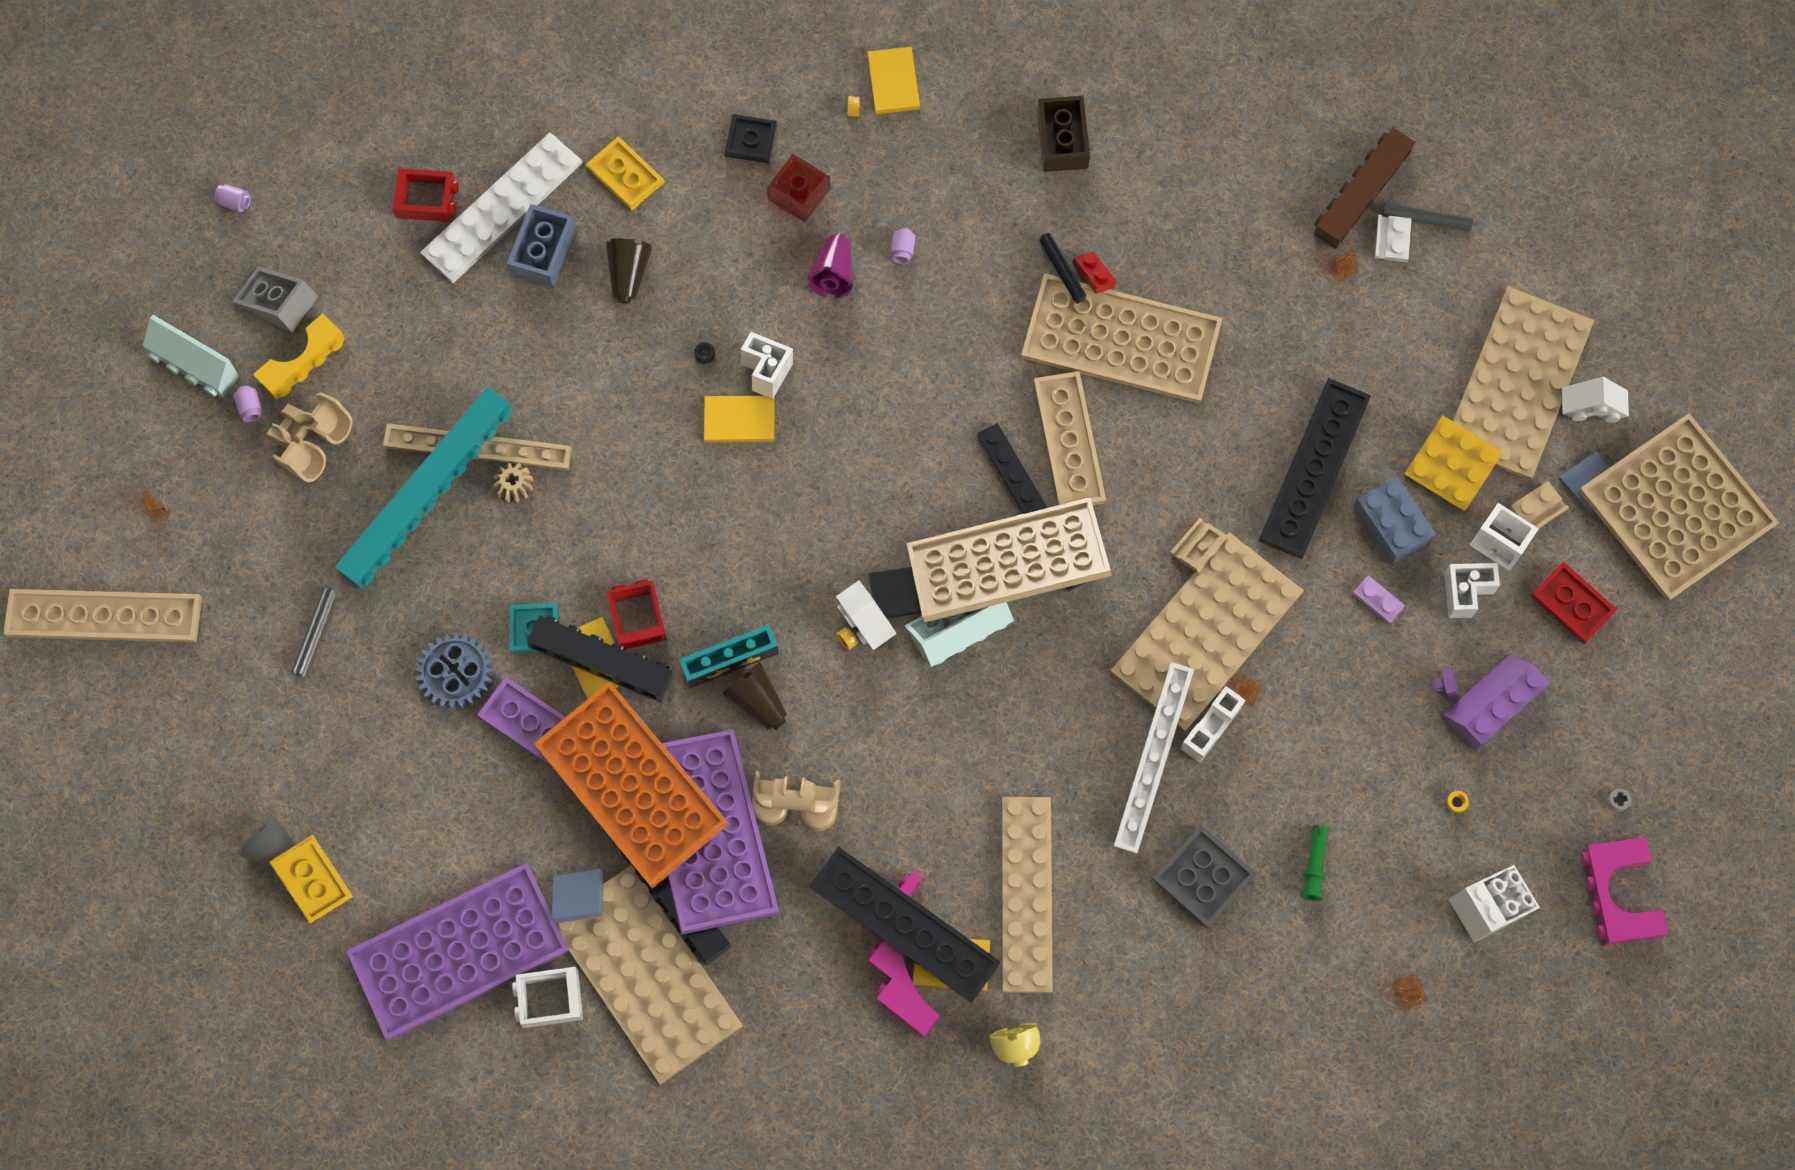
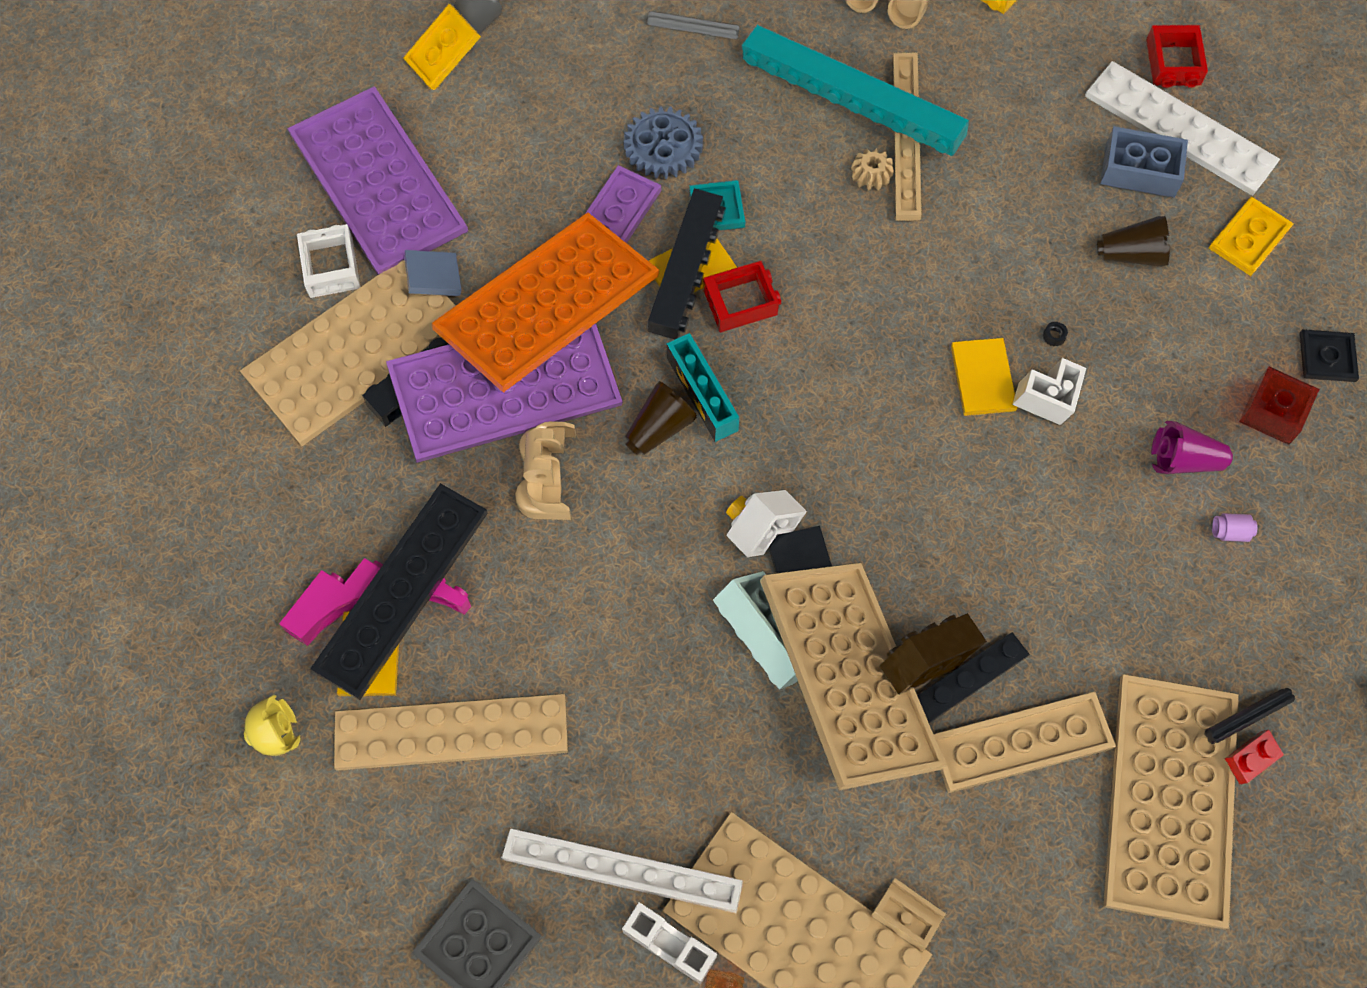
camera: 85 degrees right, 5 degrees down
(999, 493) = (932, 652): none -> dark brown brick

